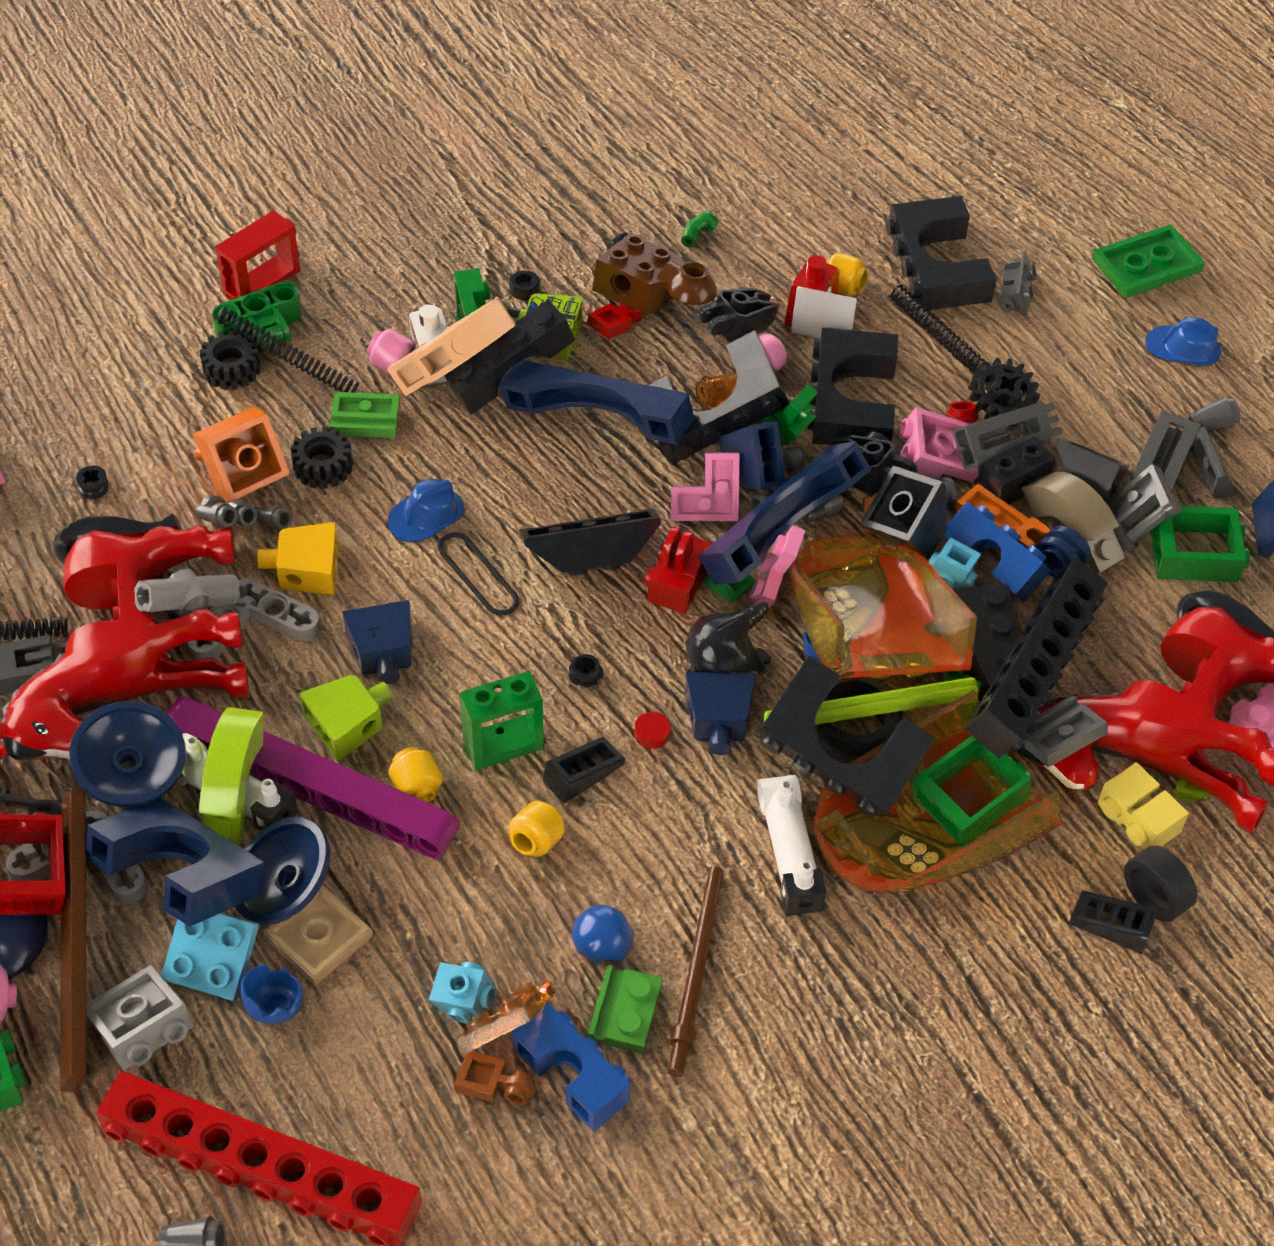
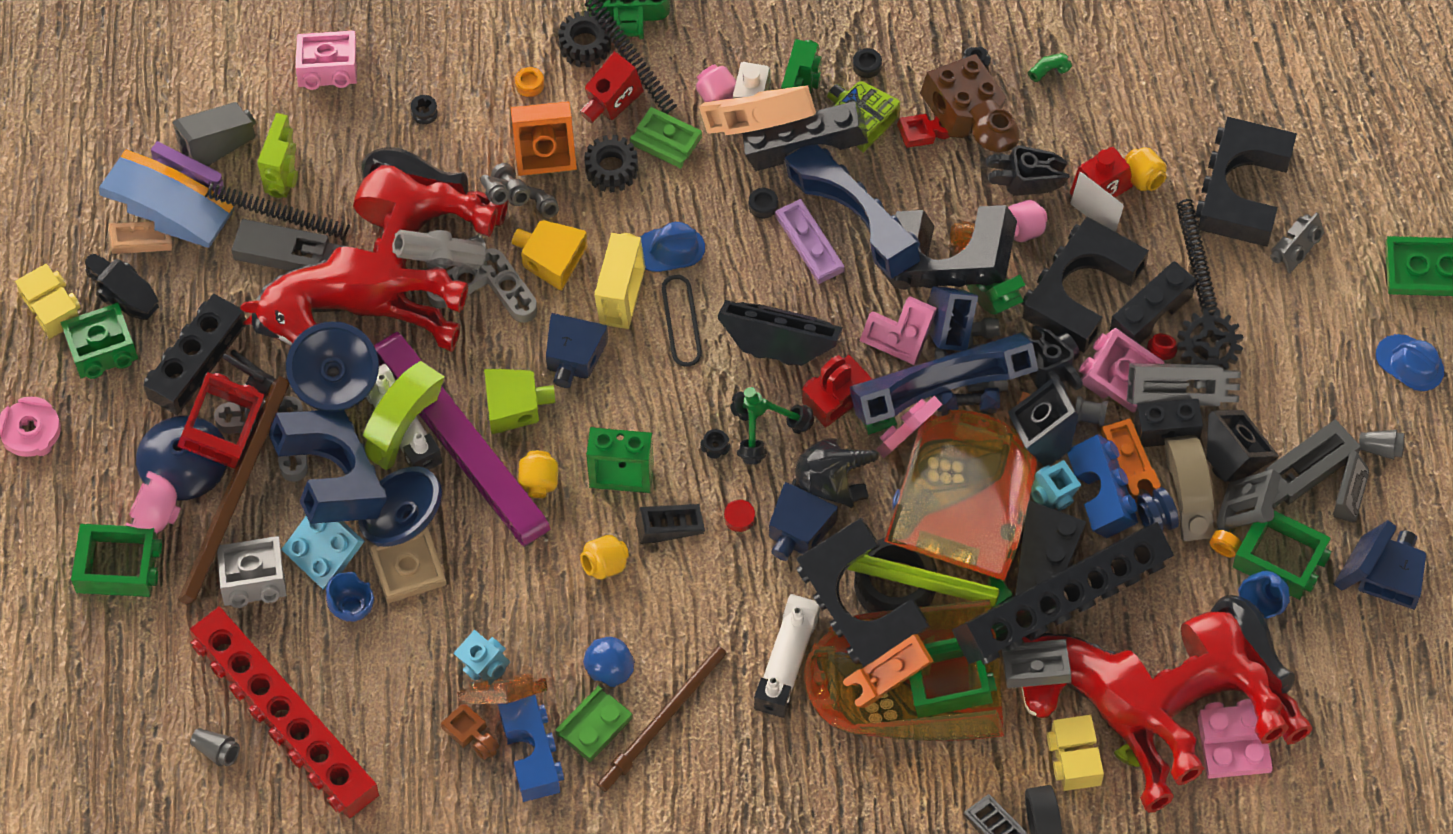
camera: 30 degrees right, 10 degrees up
(192, 418) = (529, 82): none -> light orange tile
(287, 386) = (611, 89): none -> red torso
(398, 551) = (620, 280): none -> light yellow window
(497, 437) = (763, 203): none -> black tile
(564, 453) = (809, 241): none -> lavender tile
(613, 609) = (749, 406): none -> plant
(832, 522) = (988, 400): none -> dark blue piece
(916, 803) = (889, 670): none -> orange plate
(932, 374) = (1164, 293): none -> black arch
(1141, 556) = (1225, 543): none -> light orange tile
(1214, 575) = (1266, 592): none -> blue hair

